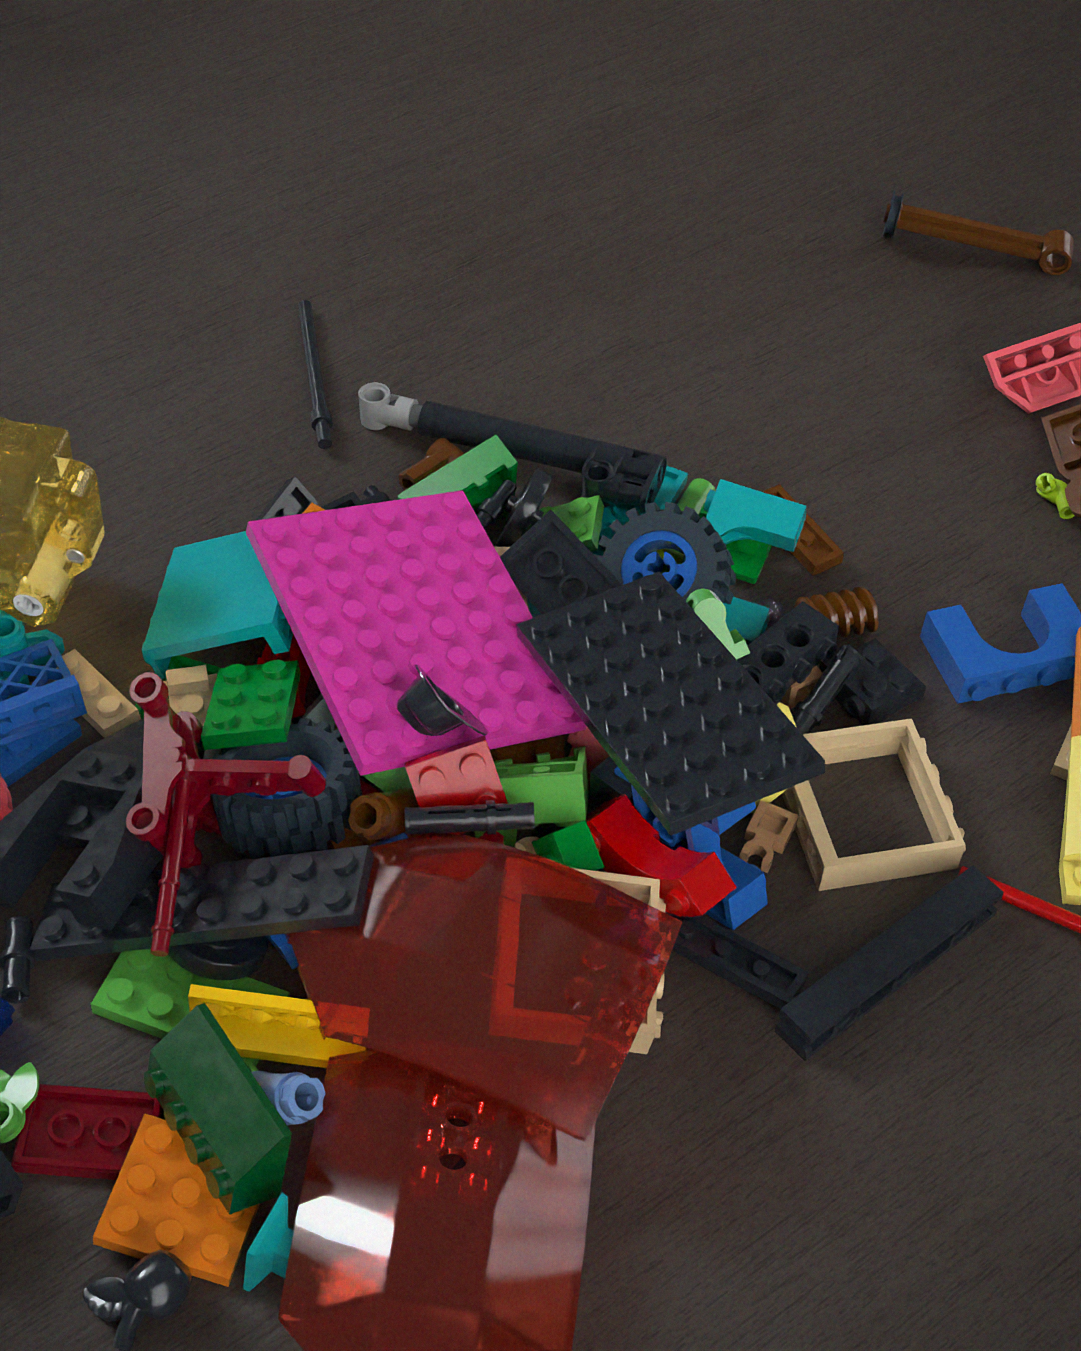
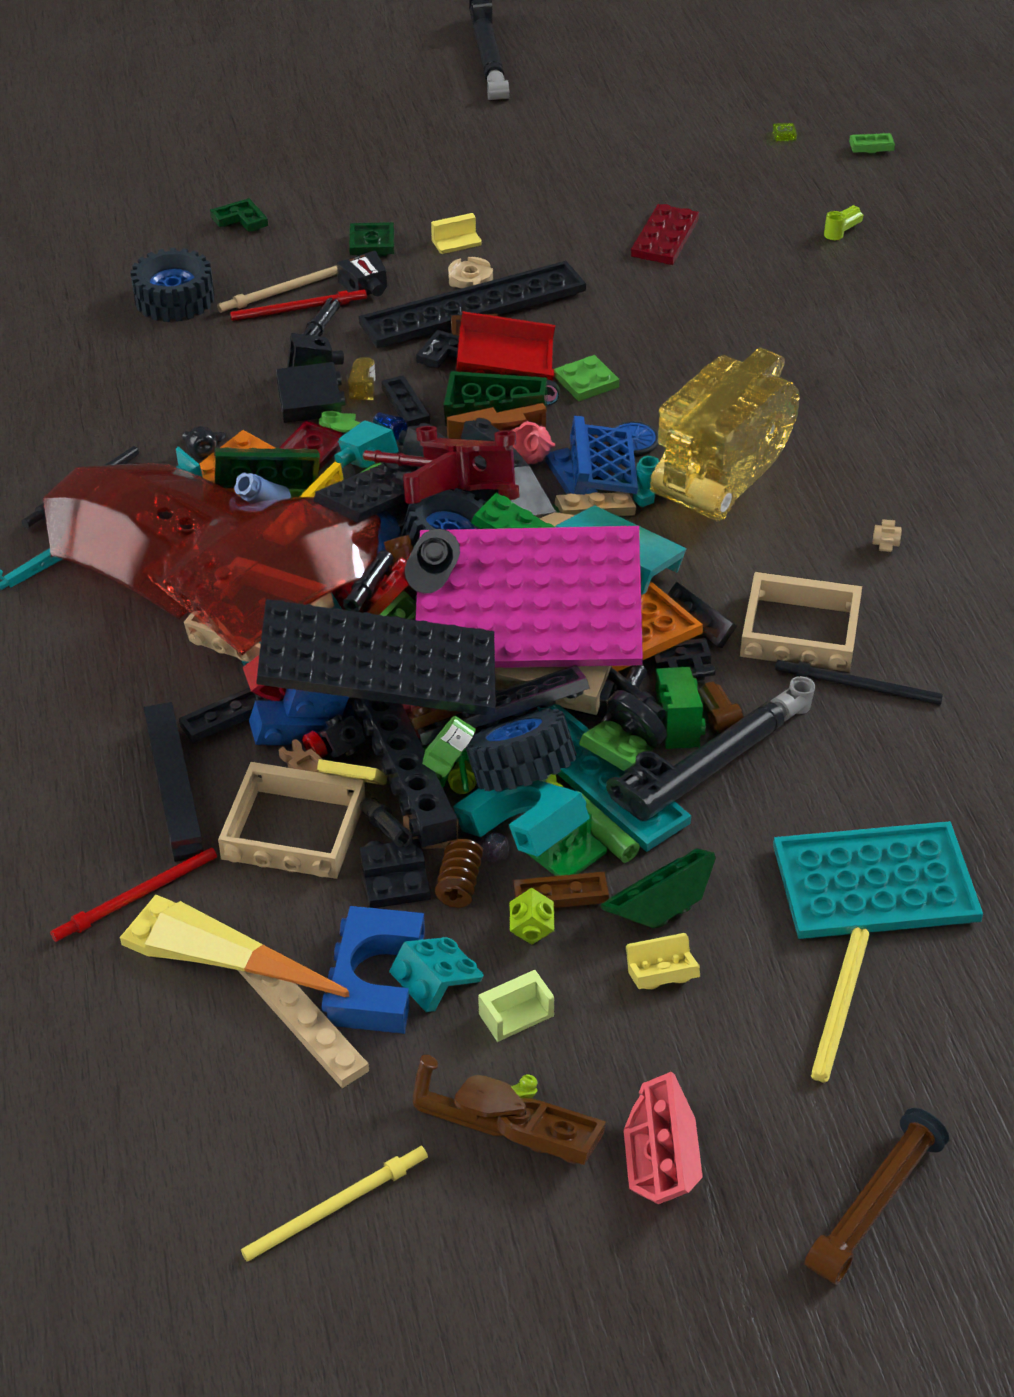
camera: 120 degrees right, 5 degrees down
(34, 387) = (887, 535): none -> tan gear
(69, 1025) = (364, 437): none -> teal torso
(249, 477) = (803, 593): none -> tan window
(613, 304) = (876, 879): none -> teal plate
(734, 835) = (314, 742): none -> red tile
(748, 444) = (665, 891): none -> dark green wedge
(780, 300) = (840, 1005): none -> light yellow axle
(837, 423) = (661, 961): none -> light yellow bracket
(858, 531) = (531, 916): none -> lime brick
(964, 524) = (516, 1005): none -> yellowish green panel
(981, 587) = (431, 967): none -> teal bracket

